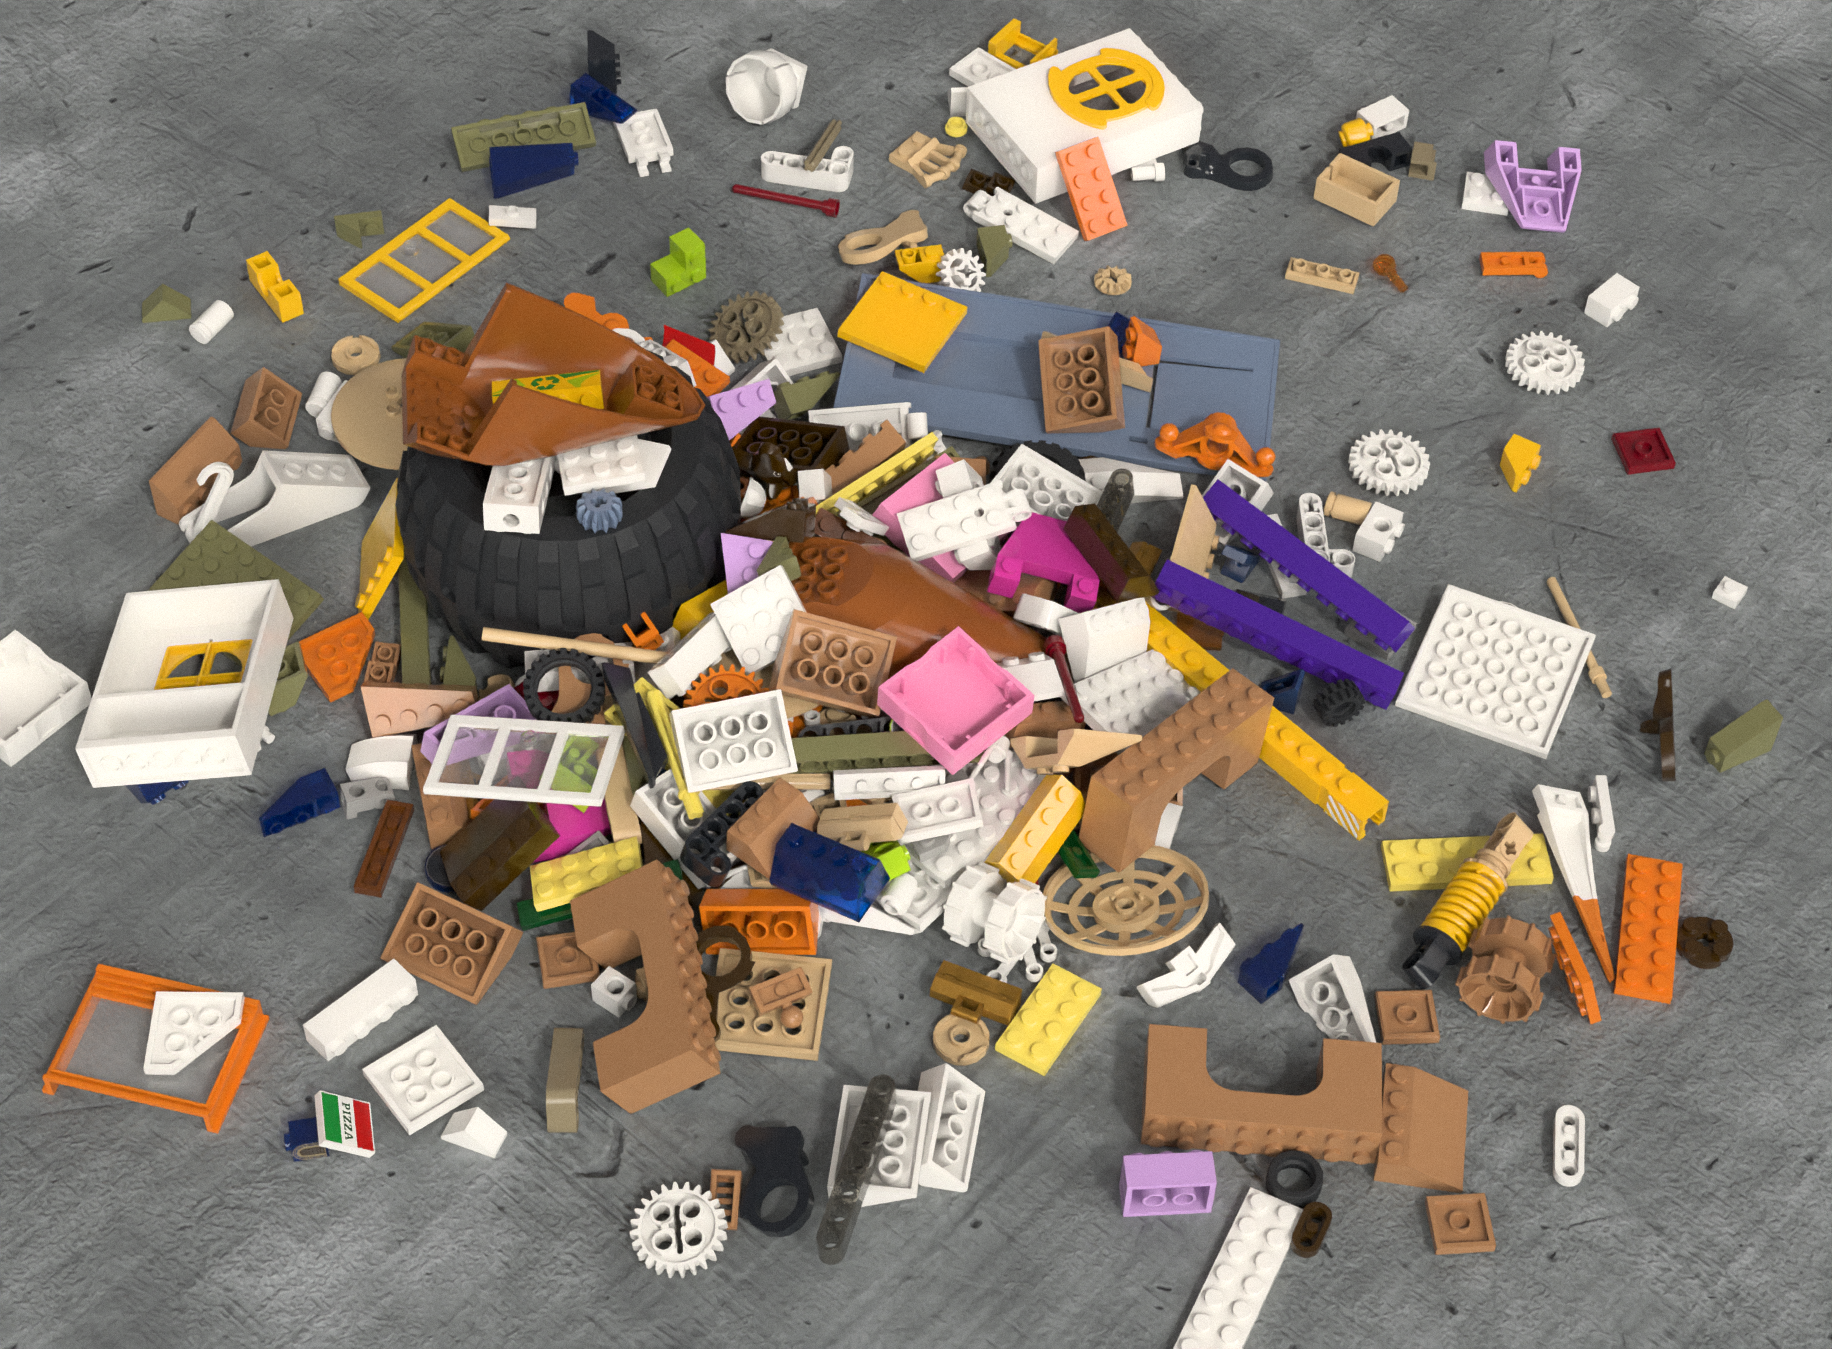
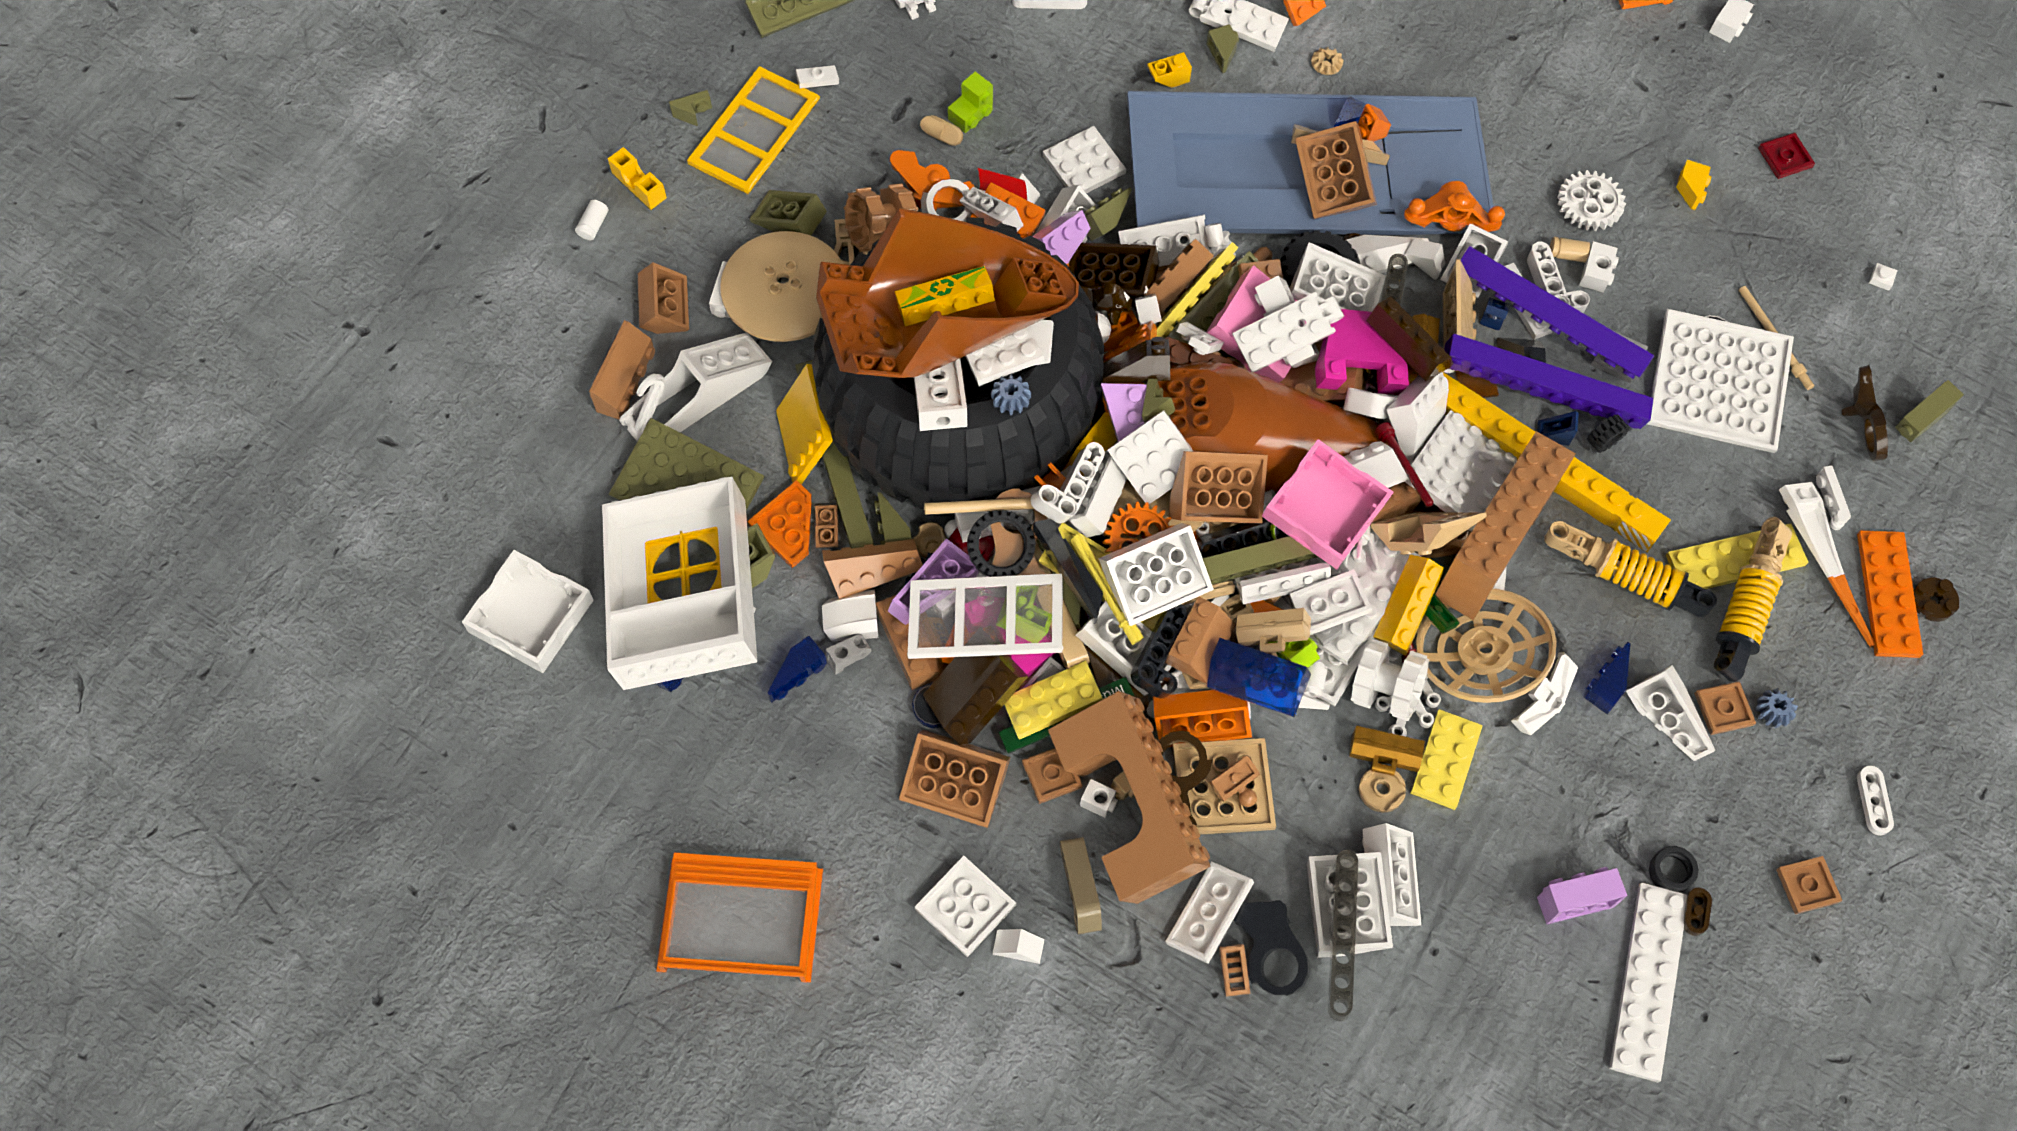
camera: 10 degrees left, 15 degrees up
(166, 305) = (548, 209): olive slope -> none
(187, 1026) = (766, 900): white plate -> none
(304, 1140) = (887, 978): clear blue brick -> none
(323, 391) = (706, 275): white piece -> none
(344, 1124) = (915, 961): tile -> none
(350, 364) = (721, 241): tan tile -> none
(360, 1010) = (898, 852): white brick -> none
(384, 848) = (875, 698): reddish brown plate -> none
(529, 166) = (817, 26): clear blue slope -> none
(638, 287) = (942, 130): none -> tan arm
(651, 1233) = (1228, 998): white gear -> none
(665, 632) = (1075, 481): none -> white beam
(711, 1132) = (1209, 912): none -> white tile
(762, 324) = (1059, 147): dark tan gear -> none
(829, 207) = (1077, 26): dark red piece -> none
(902, 322) = (1173, 133): yellow plate -> none
(903, 231) = (1146, 42): tan animal -> none
(962, 270) = (1205, 75): white gear -> none
(1171, 490) = (1426, 256): none -> white slope
(1191, 1111) = (1576, 823): medium nougat arch -> none
(1322, 275) = (1494, 29): tan tile -> none
(1328, 849) = (1632, 568): none -> piece
(1386, 266) = (1544, 13): clear orange plate -> none
(1421, 1130) = (1758, 808): medium nougat slope -> none
(1470, 1025) = (1774, 699): none -> sand blue gear
(1505, 969) = (1799, 658): medium nougat piece -> none
(1544, 362) = (1692, 86): white gear -> none
(1576, 974) = (1852, 648): orange plate -> none

